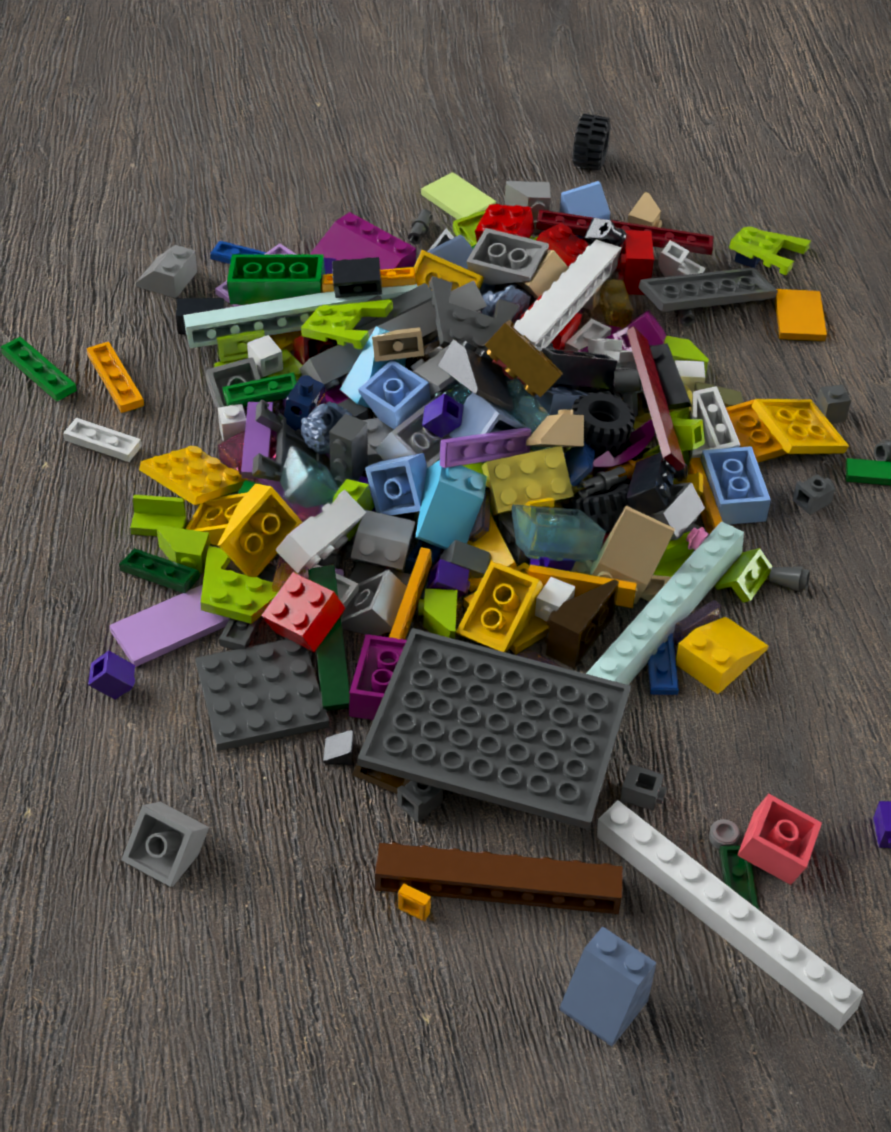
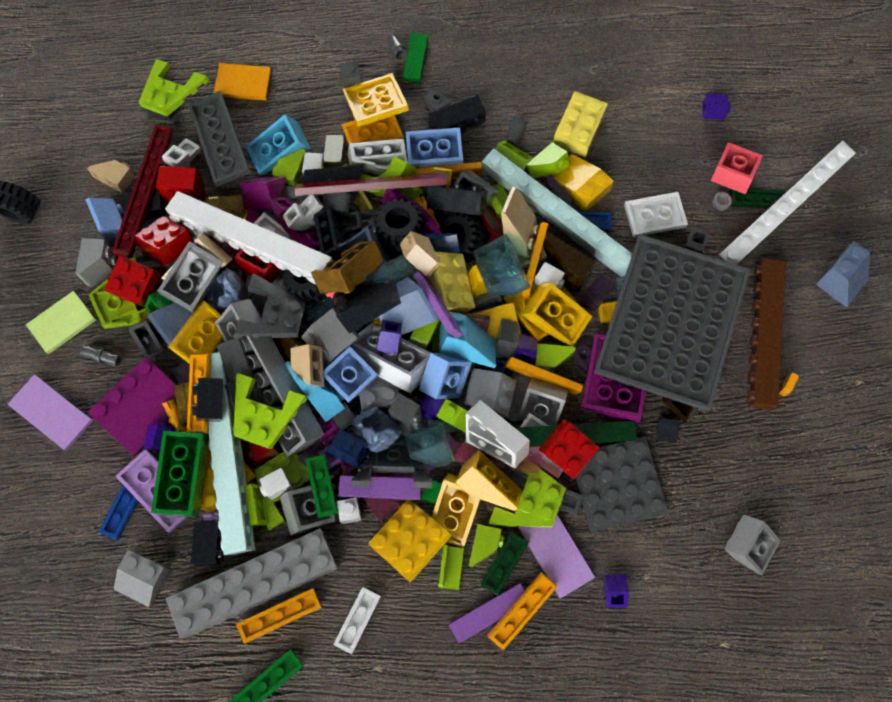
camera: 85 degrees left, 25 degrees up
(97, 585) = (522, 611): none -> light orange tile
(99, 560) = (485, 614): none -> medium lavender tile
(154, 354) = (251, 584): none -> light grey brick
(355, 195) = (50, 412): none -> lavender tile
(602, 481) = (447, 227): dark grey pin -> none
(604, 231) = (155, 204): black piece -> none
(683, 742) = (655, 214): none -> white plate
(696, 537) = (494, 179): bright pink plate -> none
(721, 345) = (275, 143): none -> medium azure slope
(745, 610) = (548, 162): none -> lime slope
(797, 514) = (459, 115): none -> black brick
(816, 647) = (580, 124): none -> light yellow brick

